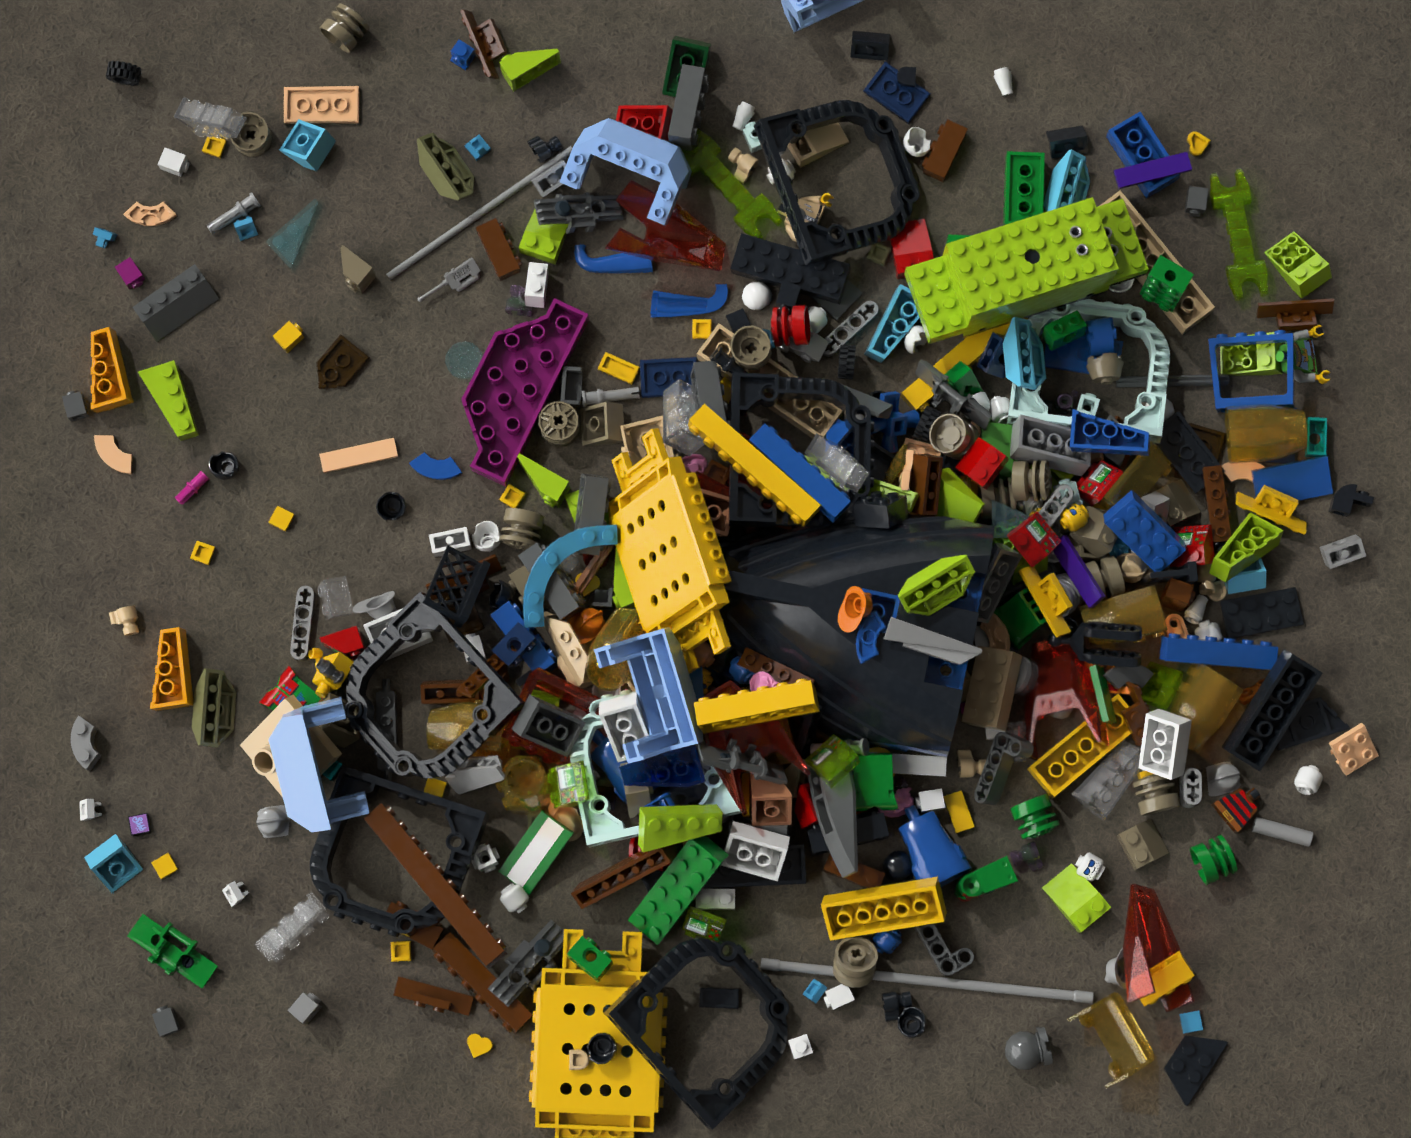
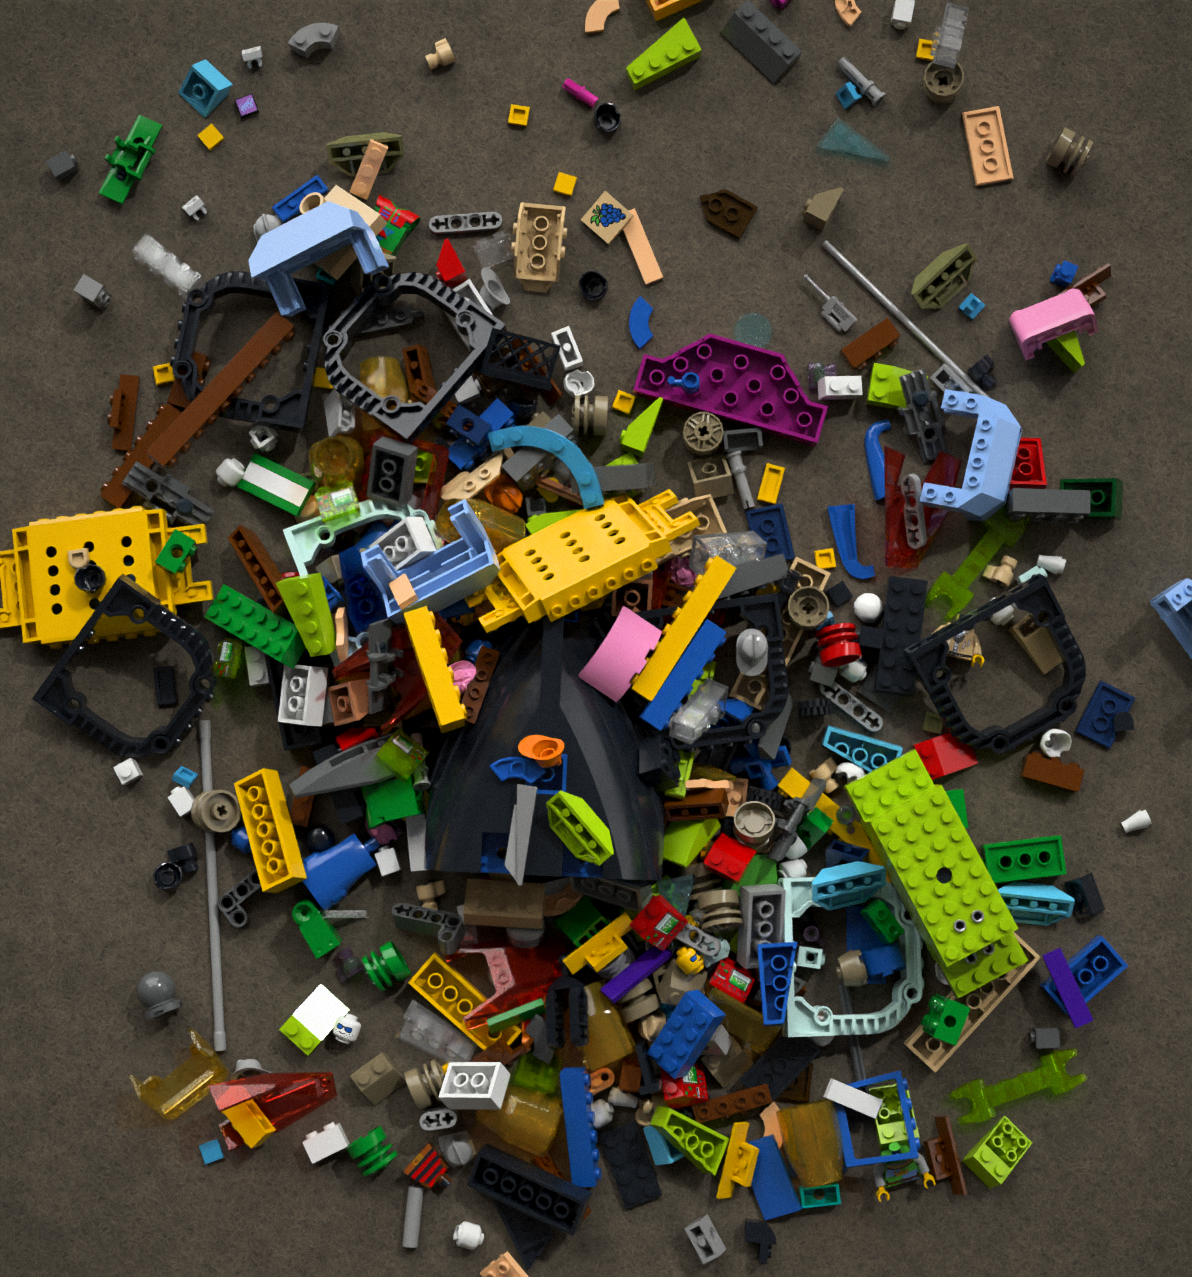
camera: 80 degrees right, 5 degrees up
(172, 671) = (396, 108): light orange wedge -> none
(231, 708) = (368, 169): none -> light nougat plate
(246, 785) = (290, 205): none -> blue tile
(289, 336) = (746, 157): yellow brick -> none
(308, 145) = (943, 139): medium azure slope -> none
(324, 481) = (607, 217): none -> tan tile
(330, 671) = (419, 255): torso -> none
(341, 551) = (538, 245): none -> tan slope
(478, 1045) = (85, 463): yellow tile -> none
(508, 72) = (1052, 319): none -> bright pink windscreen
(508, 427) = (689, 383): none -> blue piece
(671, 231) = (917, 511): none -> light grey beam
(674, 725) = (403, 591): none -> light nougat tile
(693, 797) = (342, 636): none -> light nougat tile
(772, 525) = (621, 654): none -> bright pink panel
(786, 405) = (751, 652): none -> light grey piece
(870, 45) = (1149, 679): black panel -> none
(910, 363) = (824, 772): none -> tan piece
(956, 348) = (846, 816): none -> piece
(958, 811) = (382, 890): yellow tile -> none
(979, 852) = (347, 914): none -> white piece
(1192, 1064) = (170, 1158): black wing -> none
(1197, 143) = (1107, 1030): yellow tile -> none
(1198, 905) = (325, 1142): none -> white brick
(1228, 387) = (853, 1098): none -> white tile

